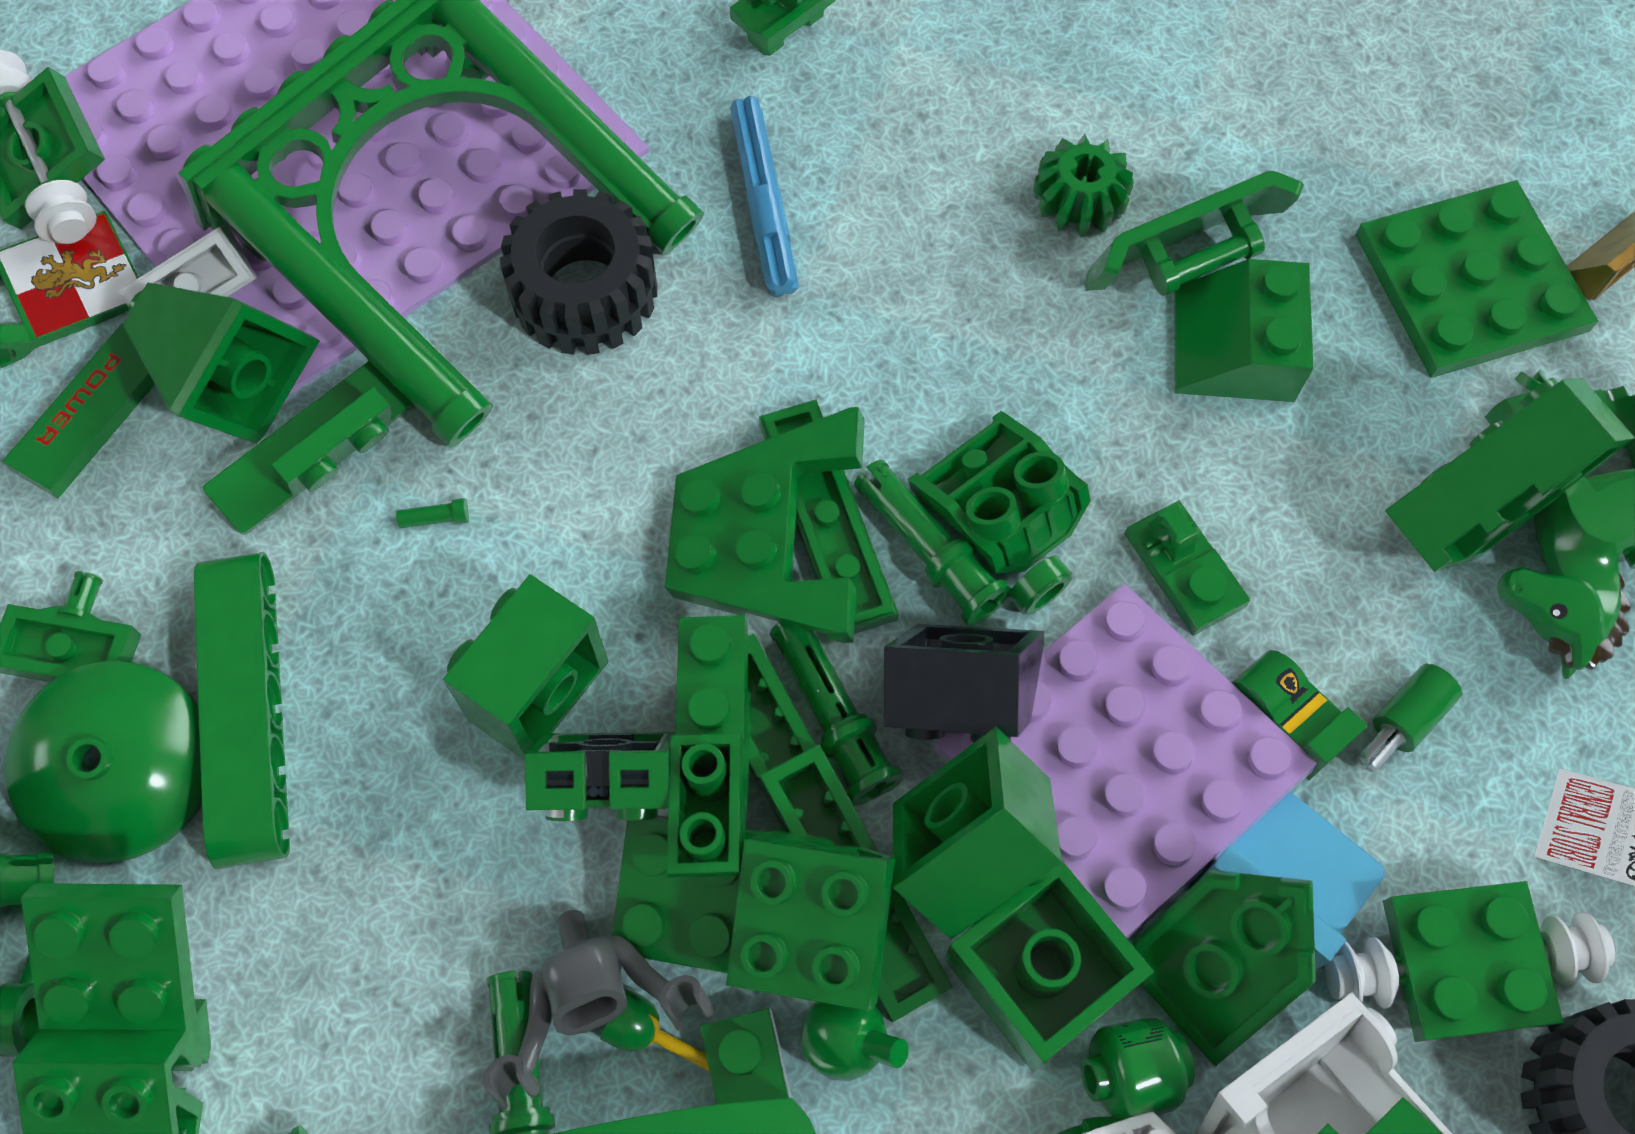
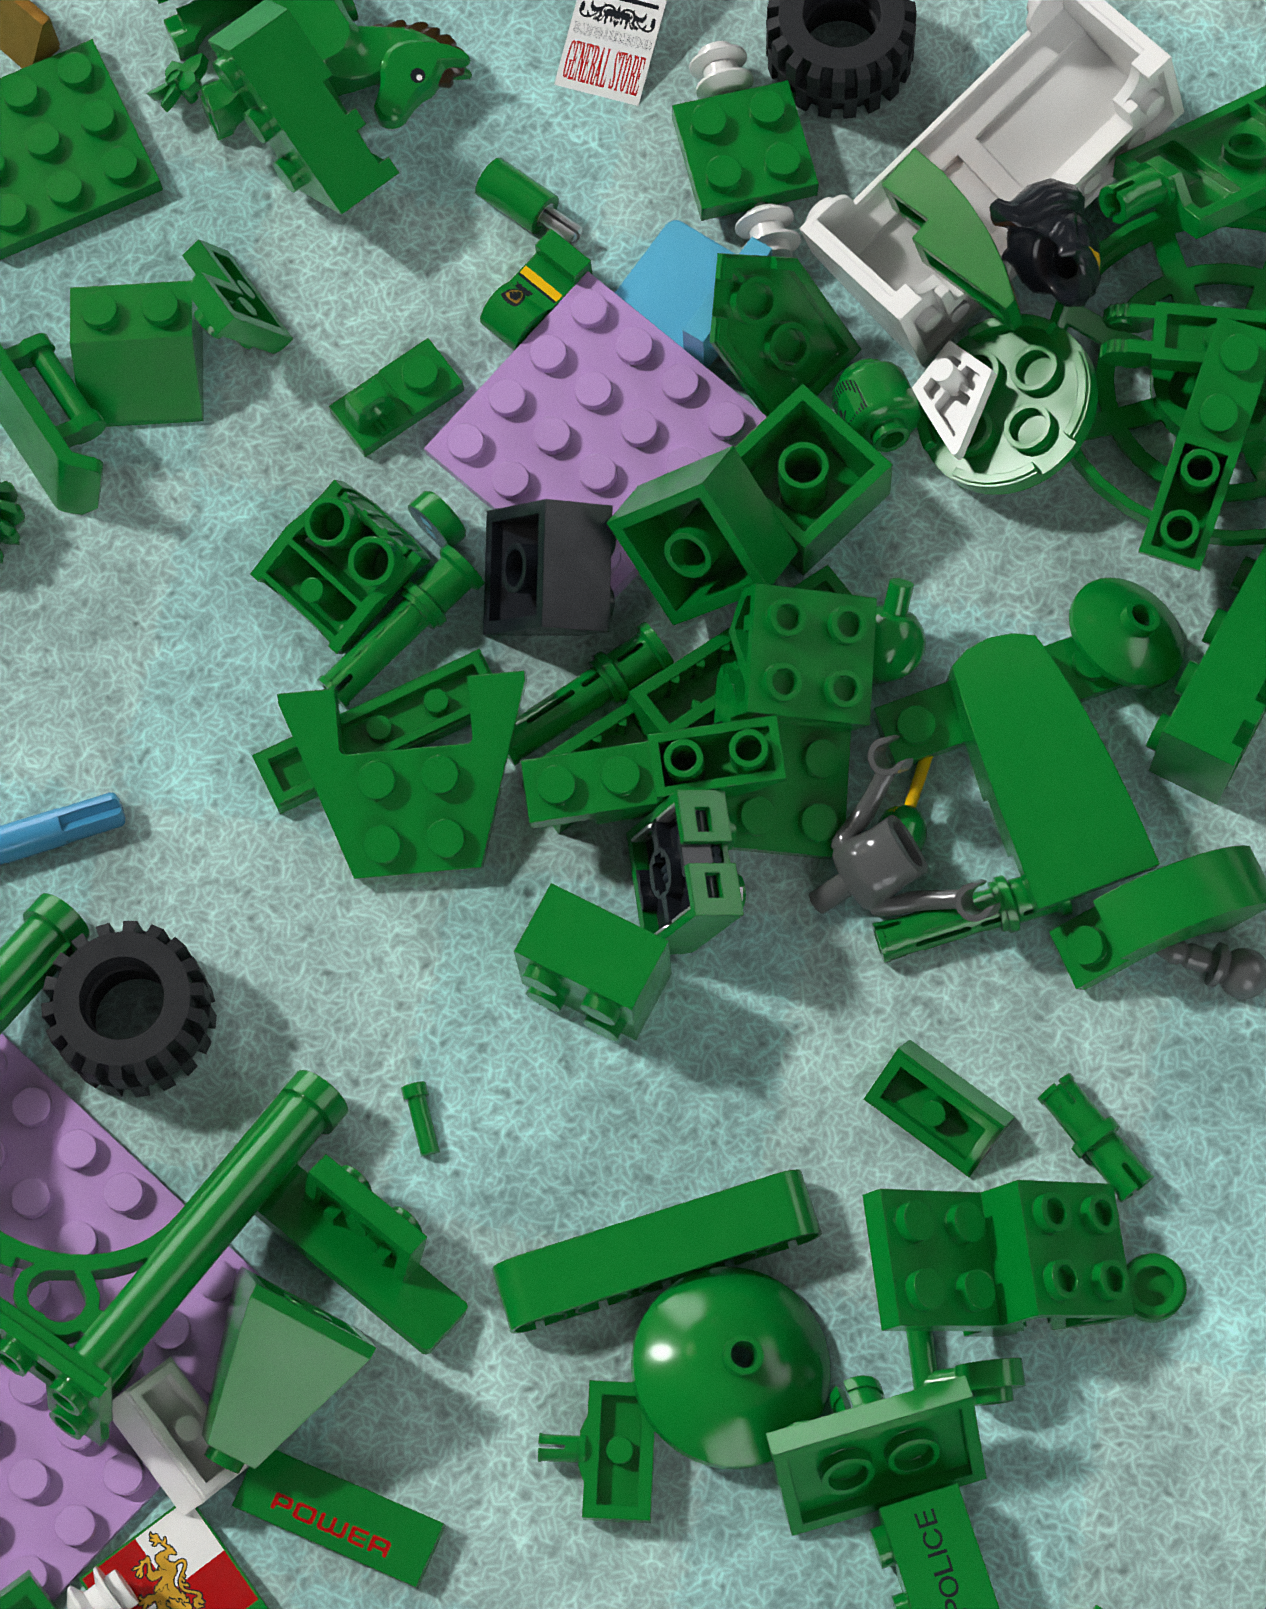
camera: 90 degrees left, 5 degrees up
(322, 1019) = (938, 1107): none -> green slope
(1288, 415) = (230, 302): none -> green plate

